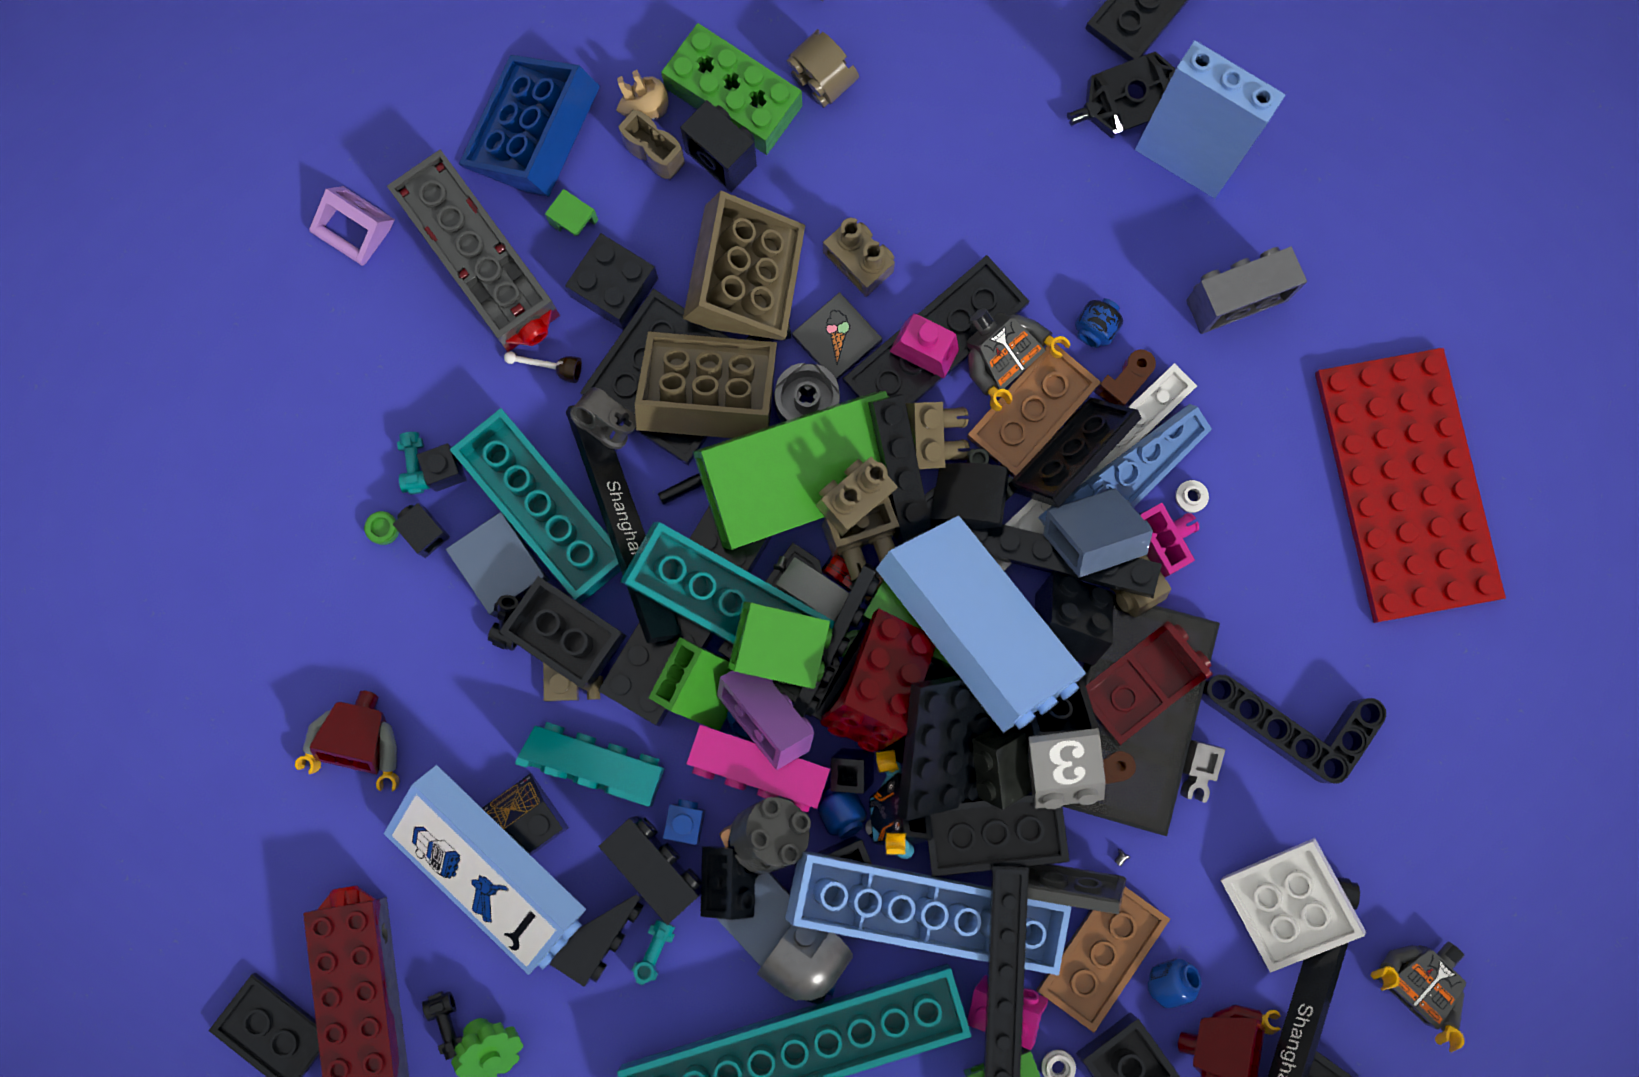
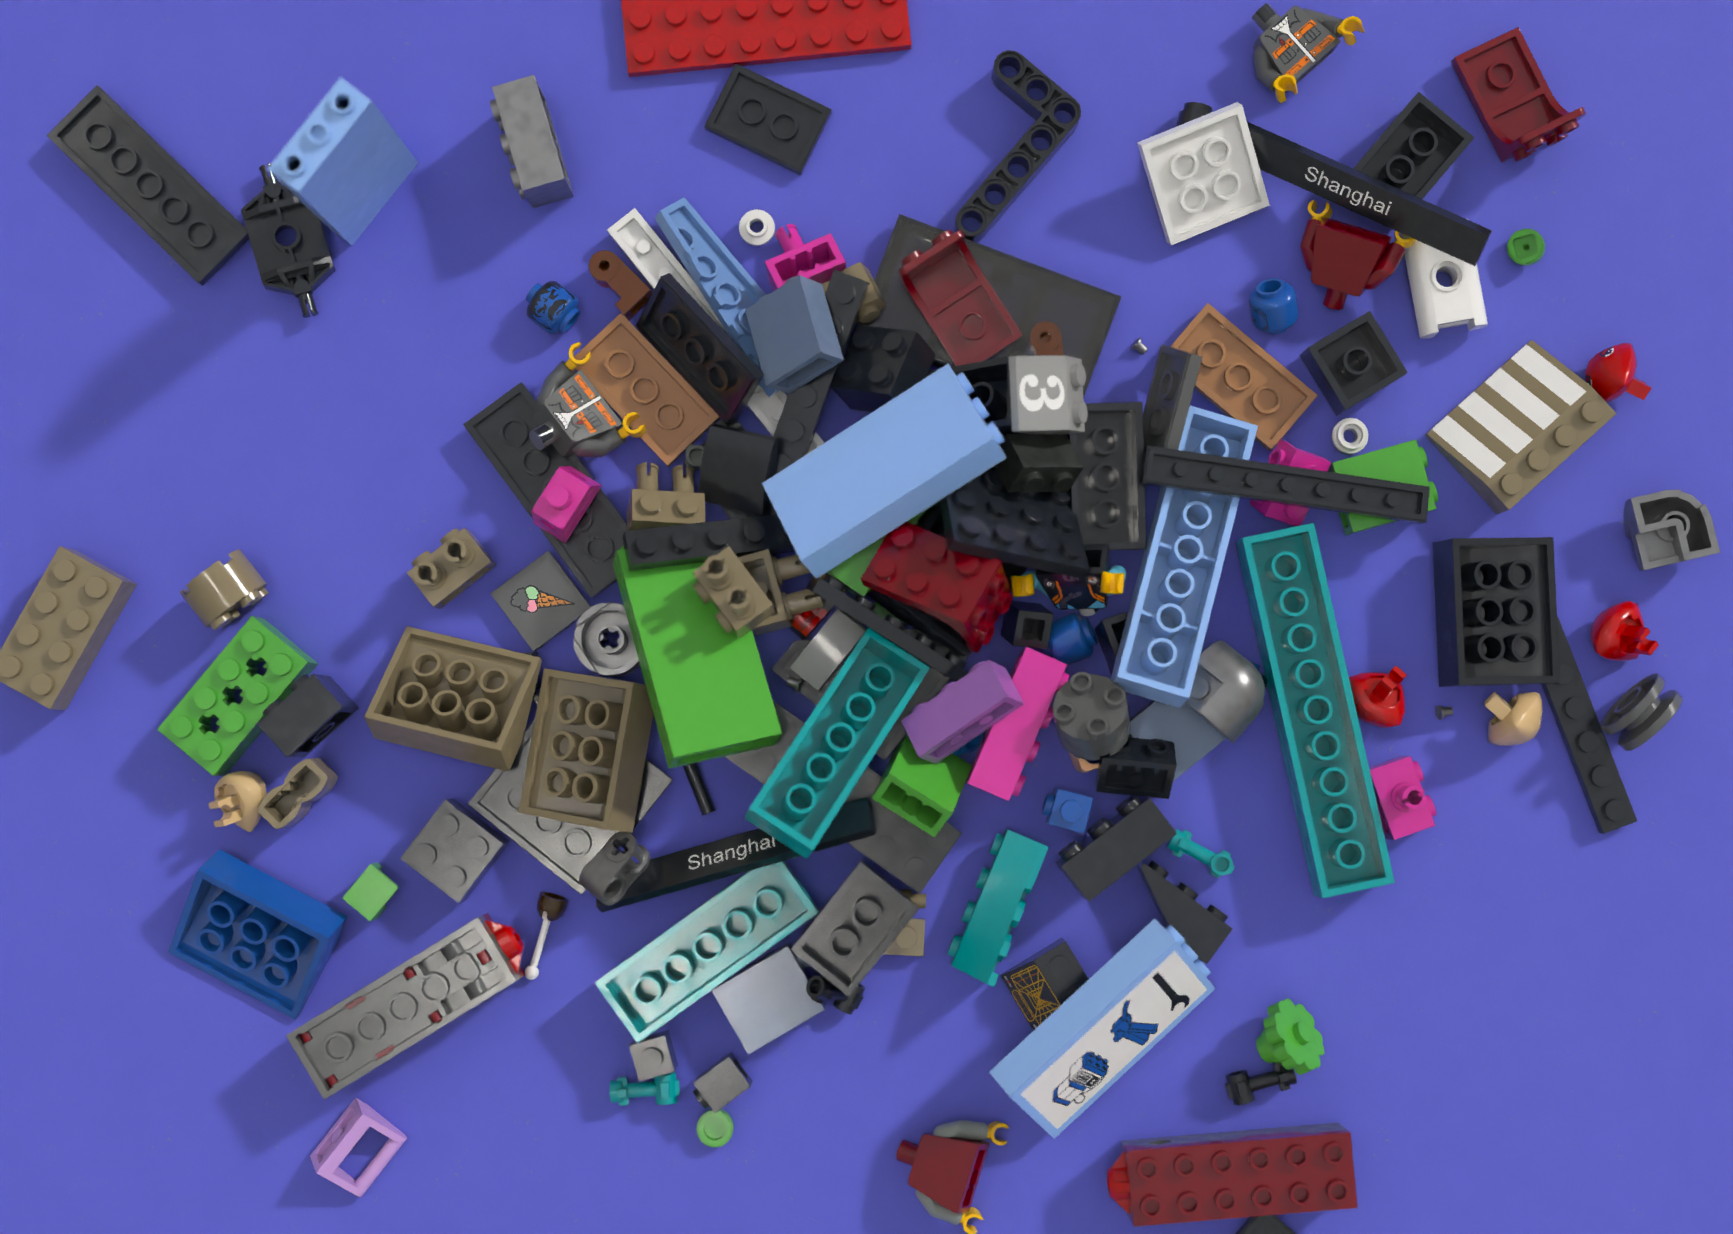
camera: 85 degrees left, 5 degrees up
(780, 645) = (891, 688): bright green brick -> none
(1201, 765) = (1049, 251): flat silver plate -> none
(1292, 498) = (768, 119): none -> black tile

